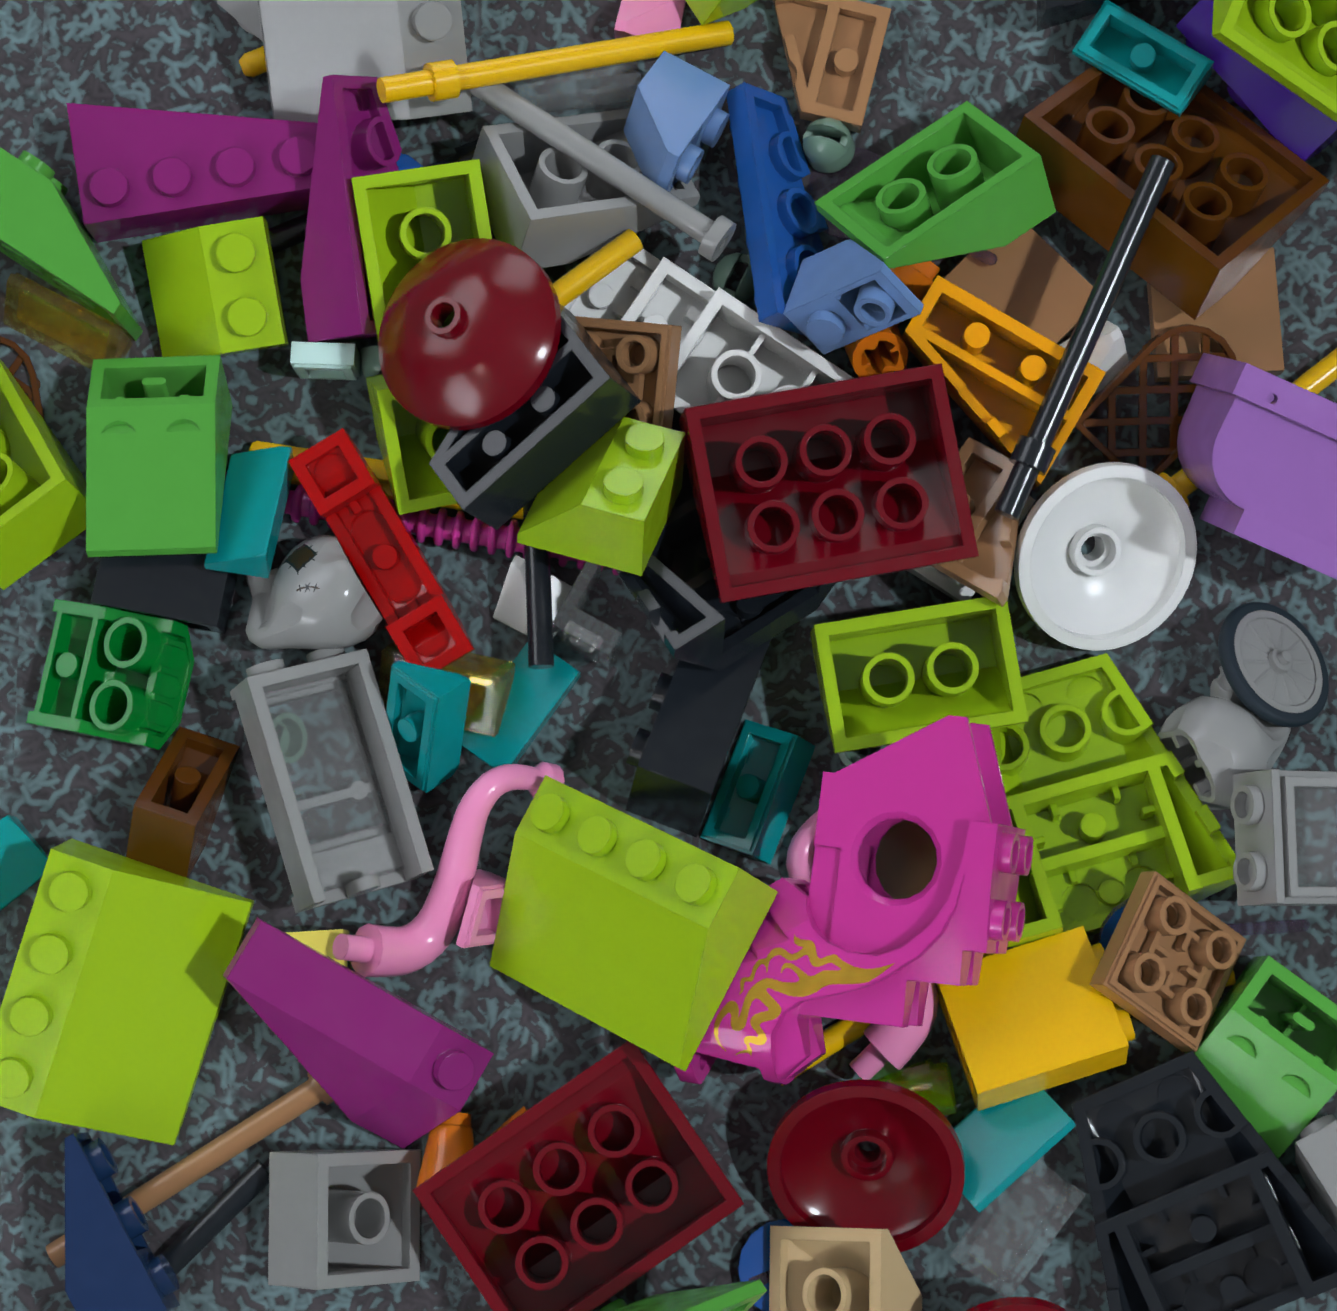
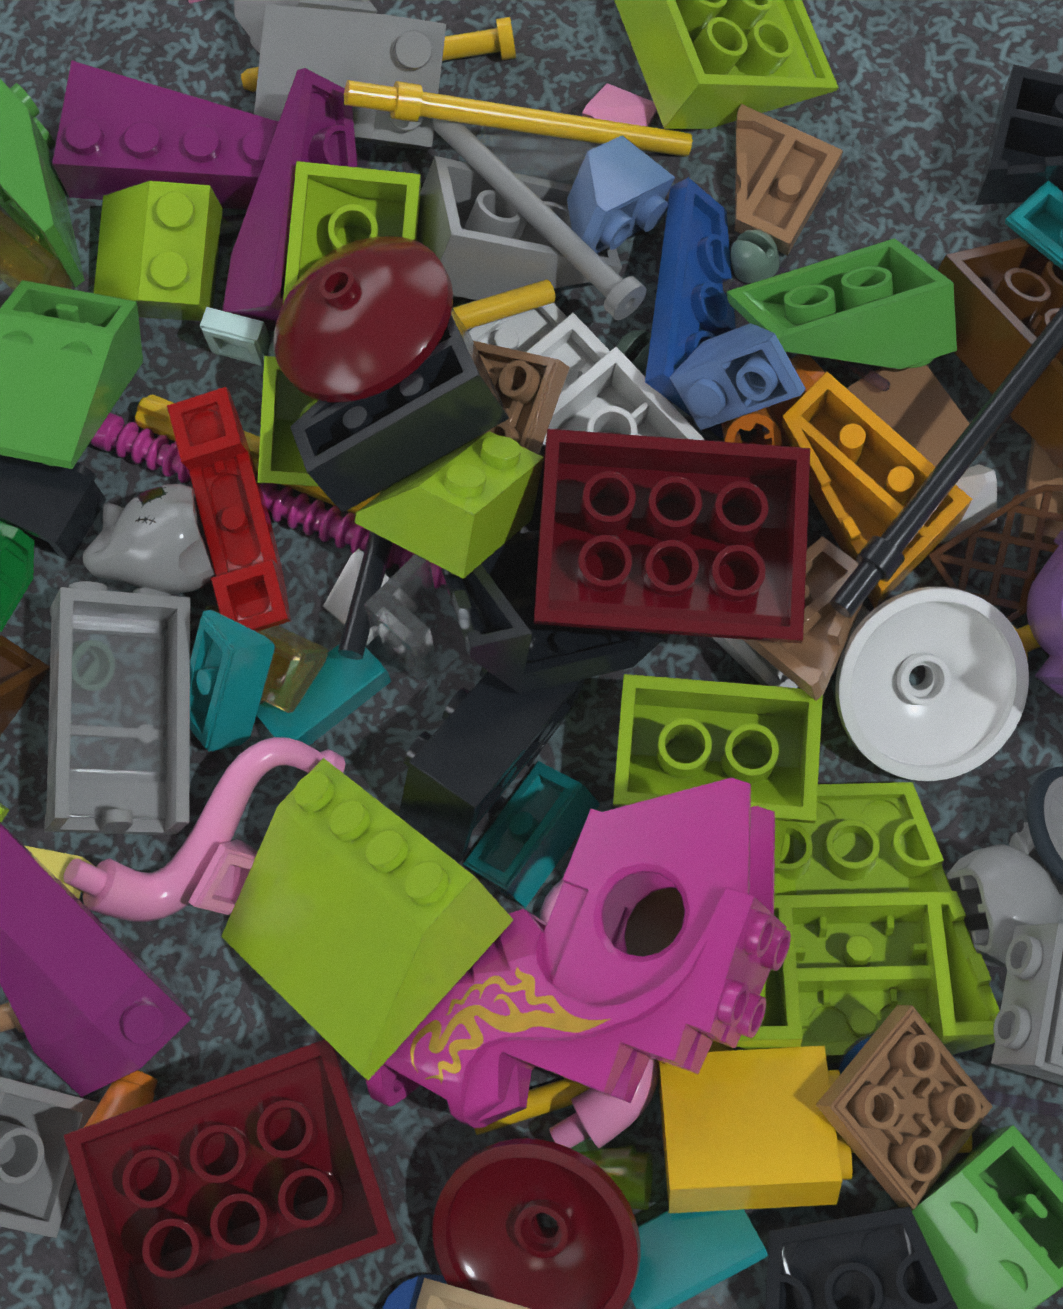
camera: 20 degrees right, 10 degrees down
(252, 511) = (121, 449): teal slope -> none

